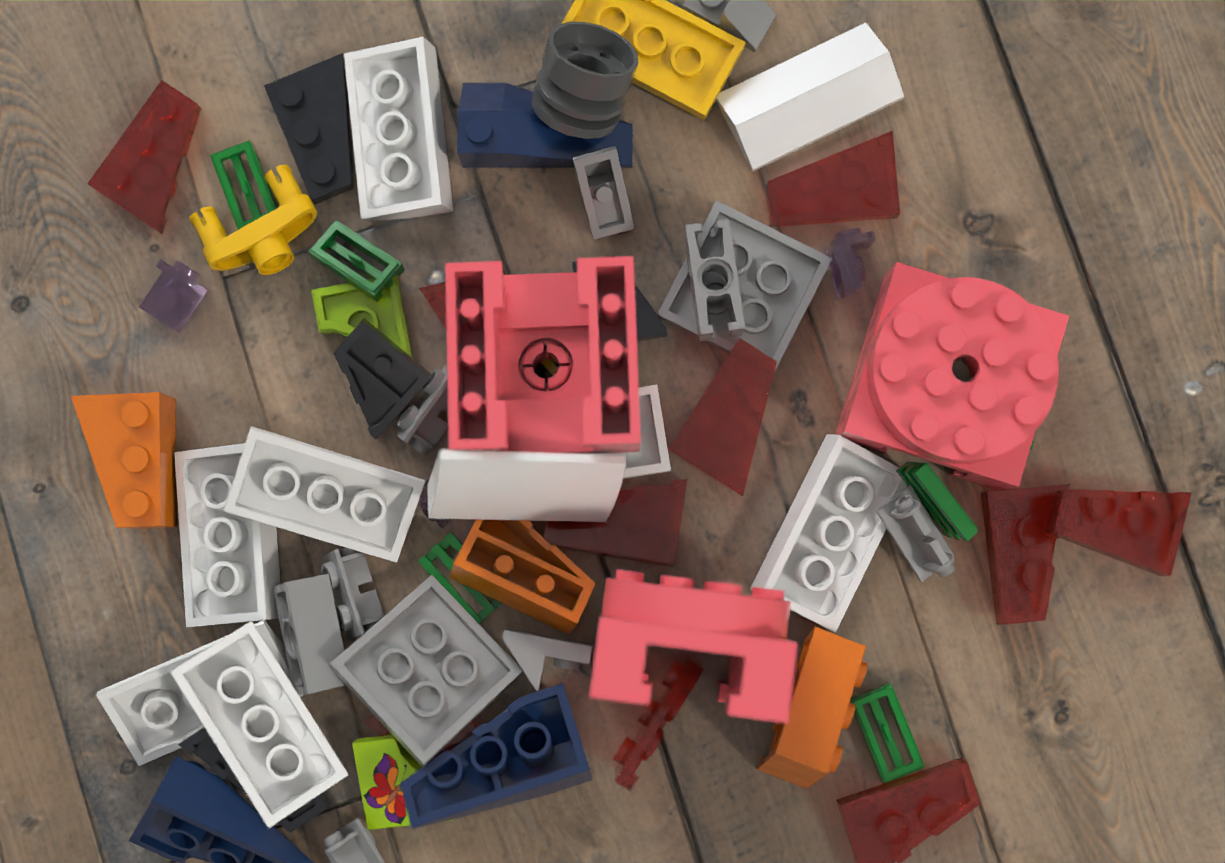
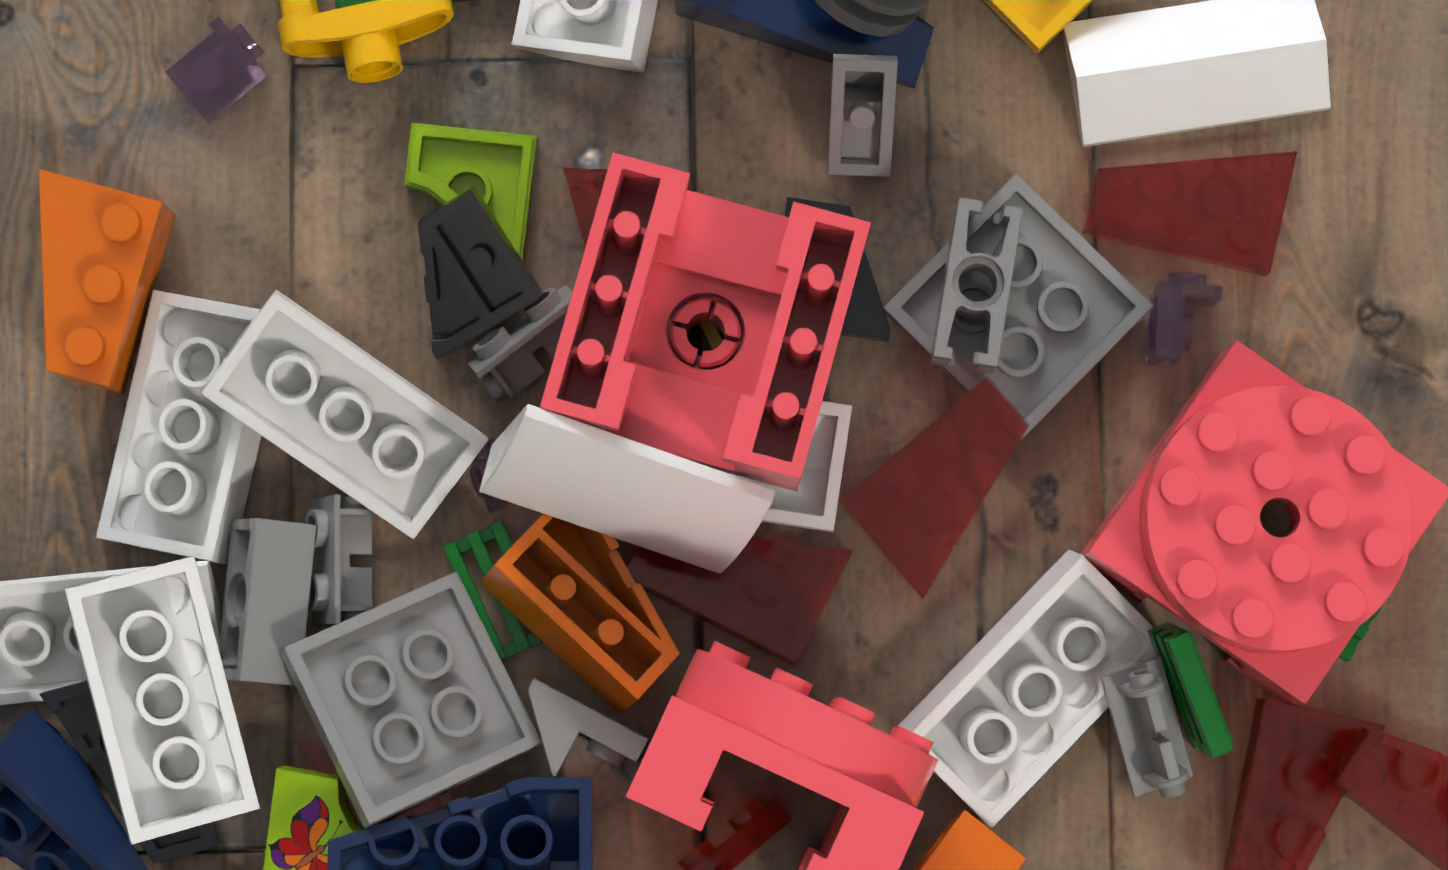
camera: 15 degrees right, 0 degrees up
(382, 279) = (516, 139): green tile -> none

